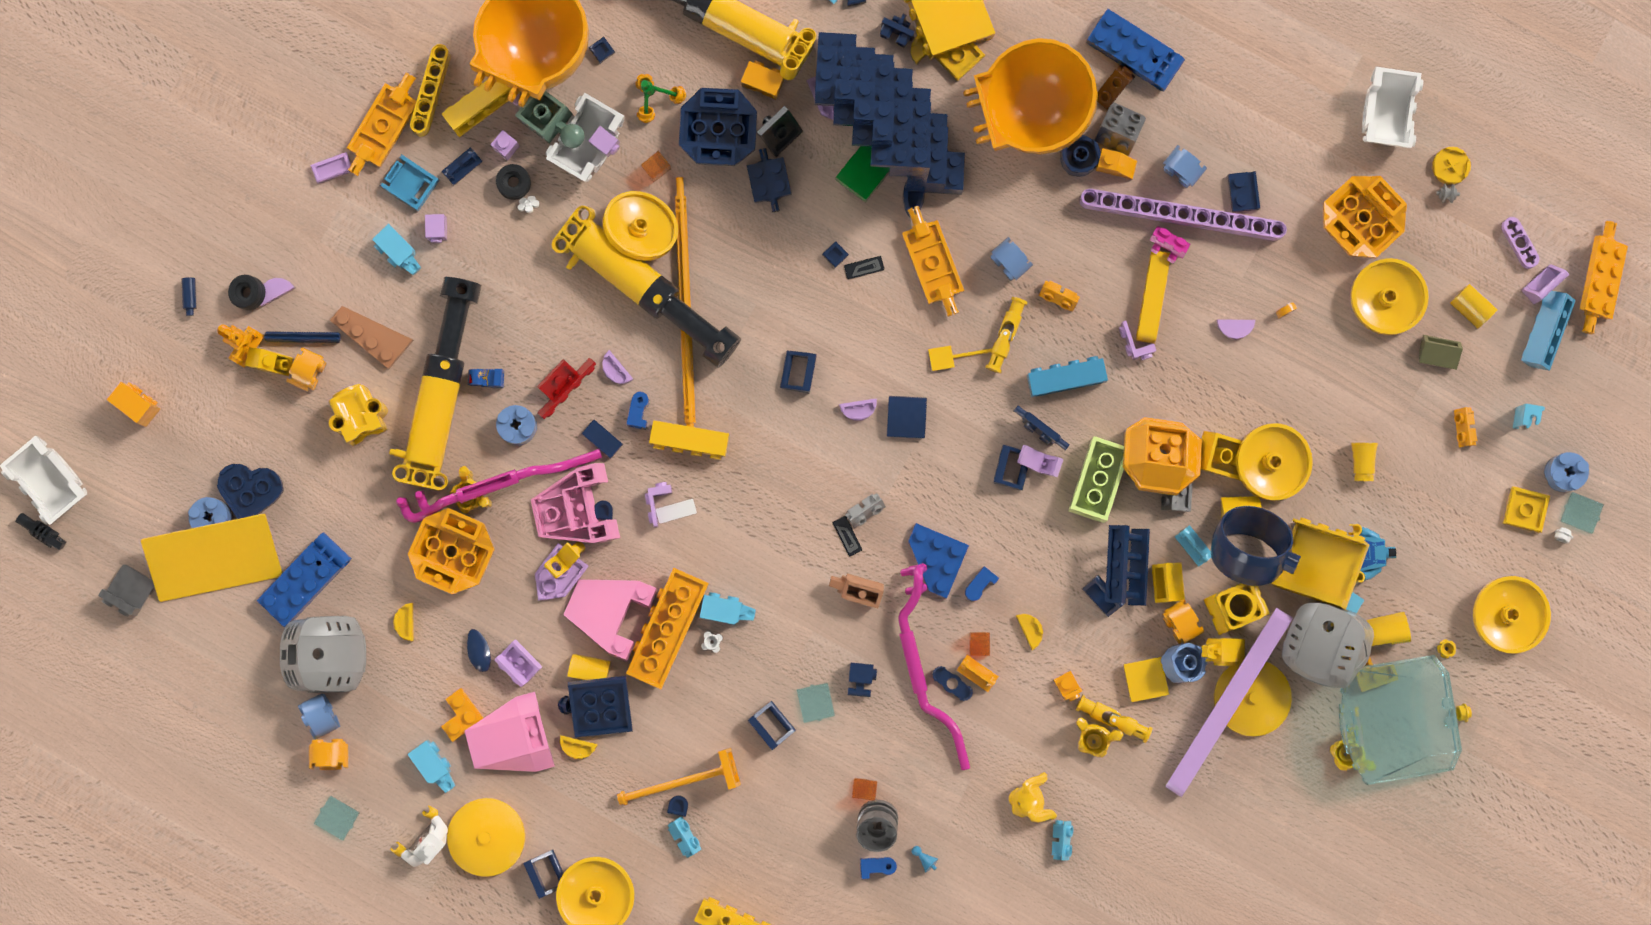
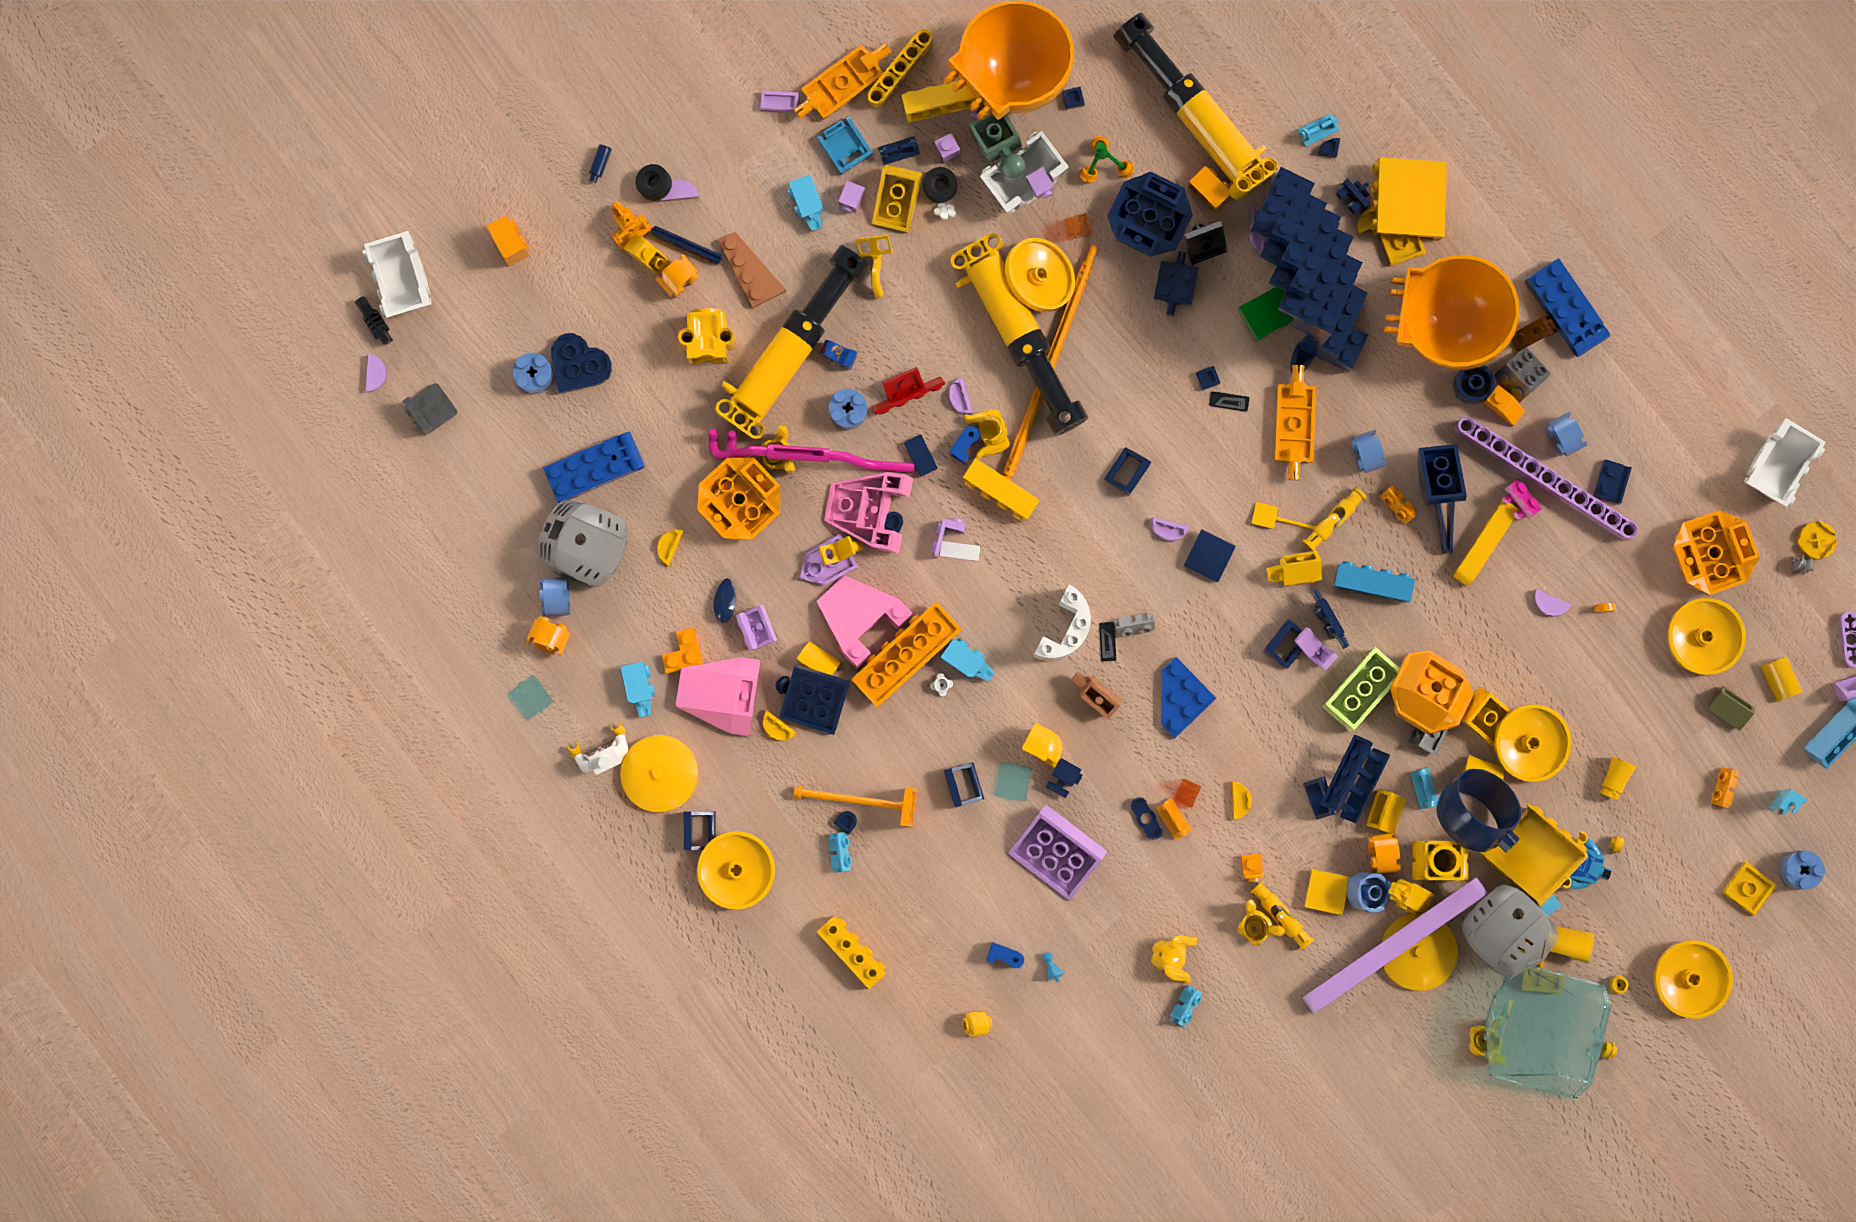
camera: 25 degrees right, 0 degrees up
(63, 579) = (375, 373): none -> lavender tile
(211, 557) = (519, 410): yellow piece -> none
(478, 210) = (896, 198): none -> yellow slope
(482, 272) = (875, 255): none -> yellow piece
(658, 388) = (992, 432): none -> yellow hair
(814, 540) = (1077, 632): none -> white cylinder
(829, 657) = (1044, 745): none -> yellow brick
(864, 789) = (1024, 880): clear orange panel -> none
(877, 825) = (1022, 918): flat silver wheel -> none
(884, 750) = (1057, 852): none -> lavender slope
(914, 663) = (1119, 786): dark pink piece -> none
(976, 587) = (1205, 740): blue leg -> none
(991, 395) = (1296, 569): none -> yellow hinge
(1089, 260) = (1442, 482): none -> dark blue slope
(1143, 353) = (1455, 591): lavender bracket -> none
(1389, 521) = (1616, 844): none -> yellow plate
(1563, 535) = (1773, 927): white plate -> none
(1582, 512) = (1800, 914): clear light blue piece -> none

